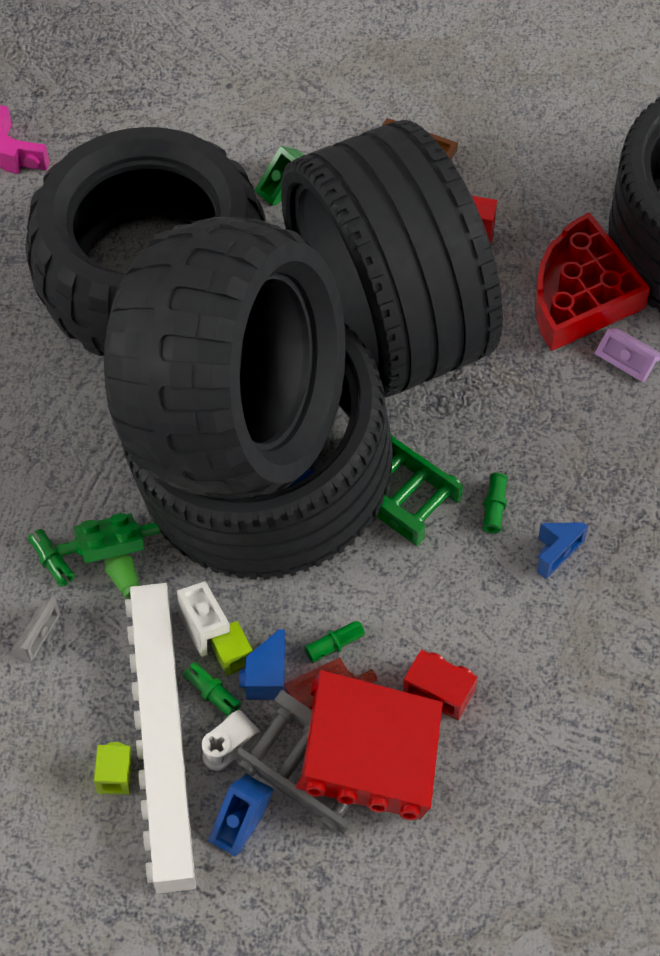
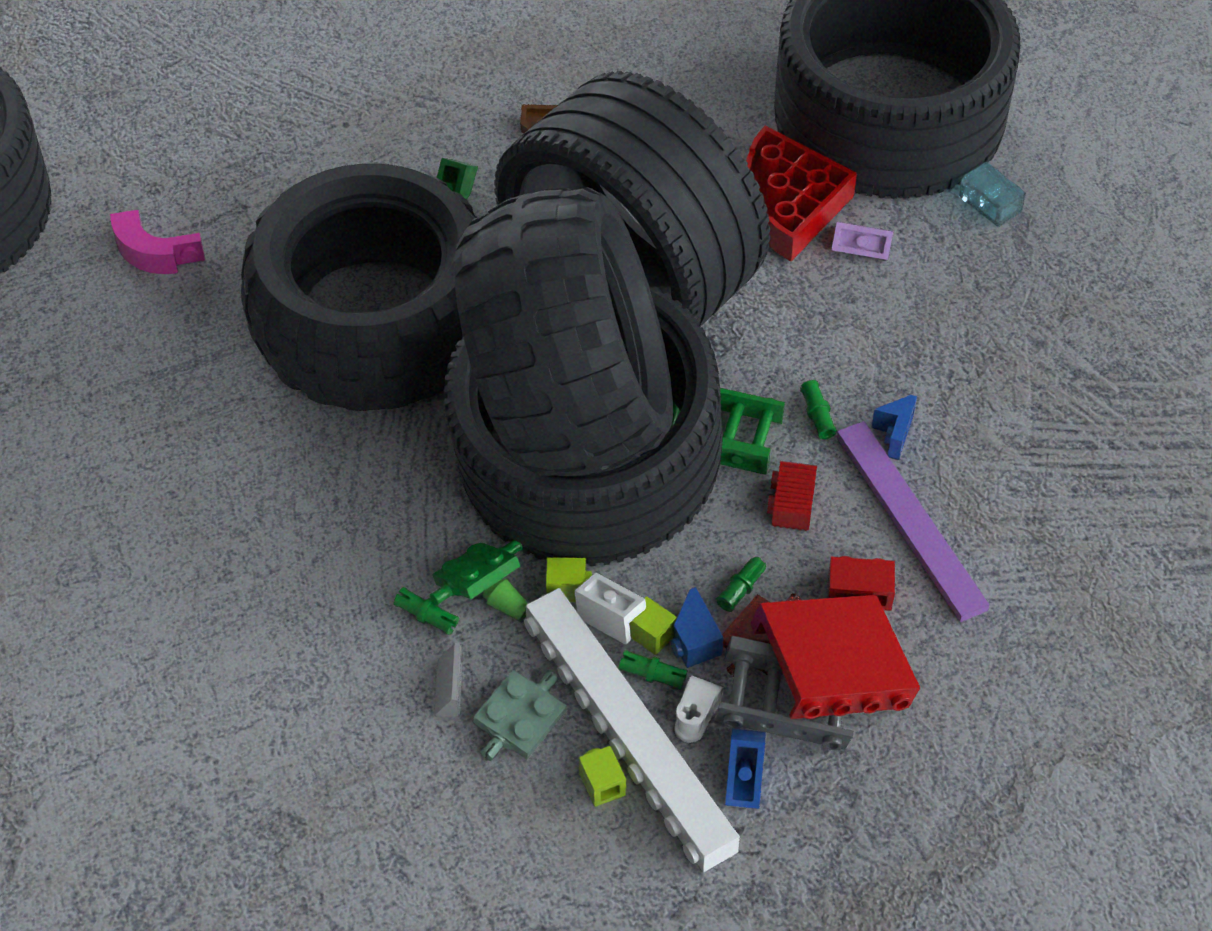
camera: 25 degrees left, 5 degrees down
(78, 683) = (519, 714): none -> sand green plate
(181, 572) = (566, 575): none -> lime brick
(425, 576) = (793, 495): none -> red brick
(523, 645) = (913, 522): none -> medium lavender tile

